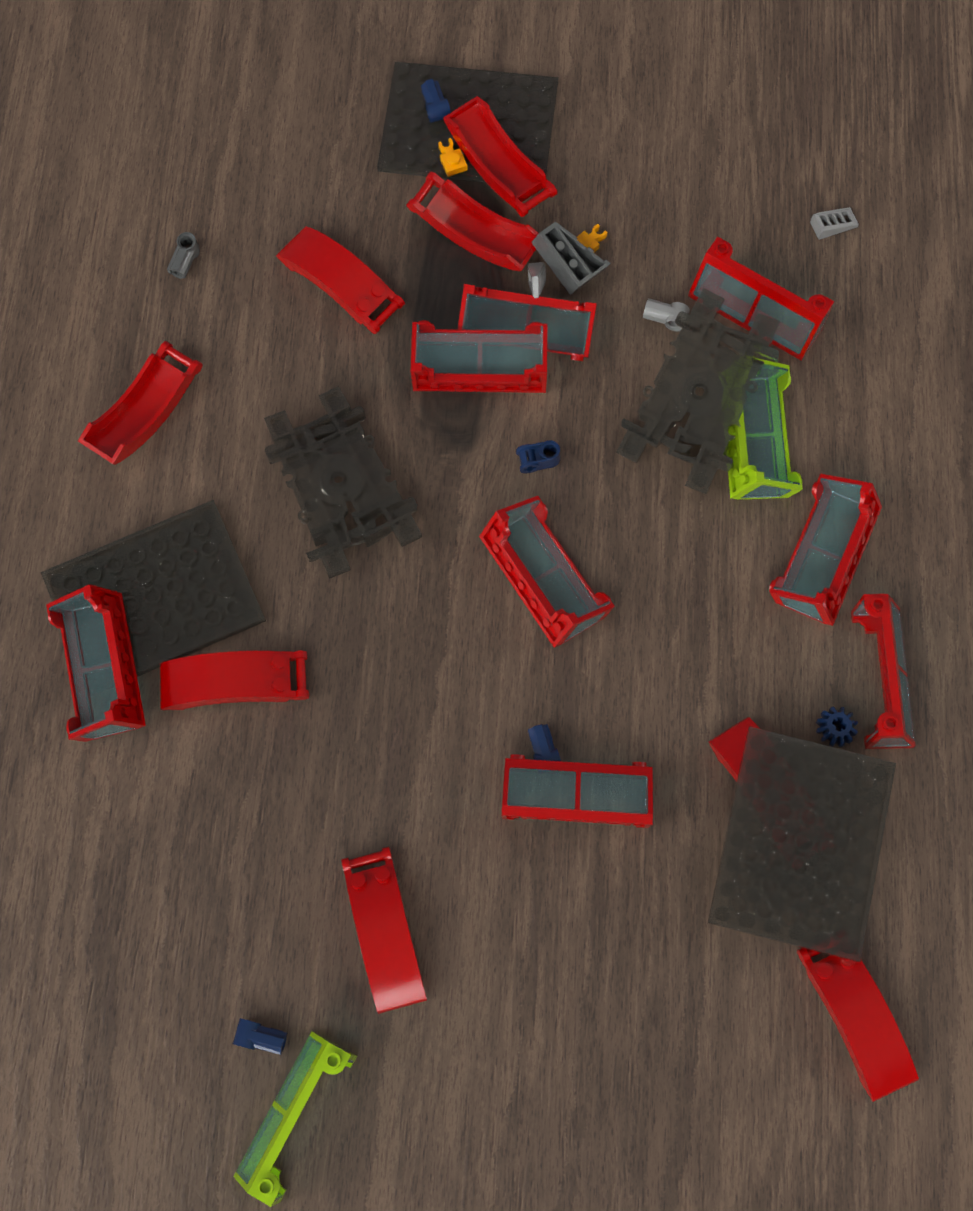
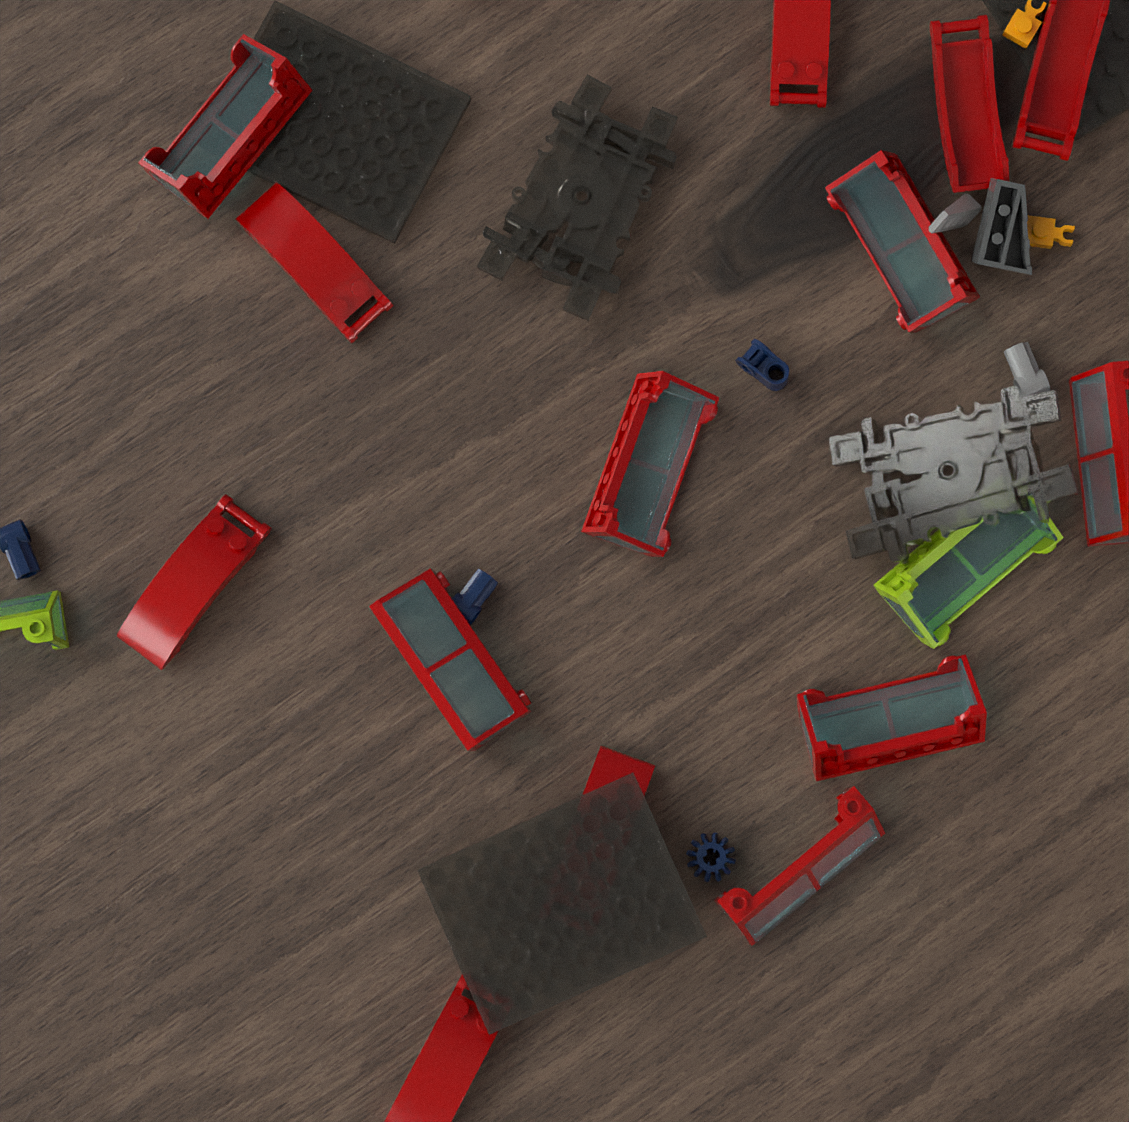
camera: 55 degrees right, 10 degrees up
(479, 359) = (819, 227): windscreen -> none

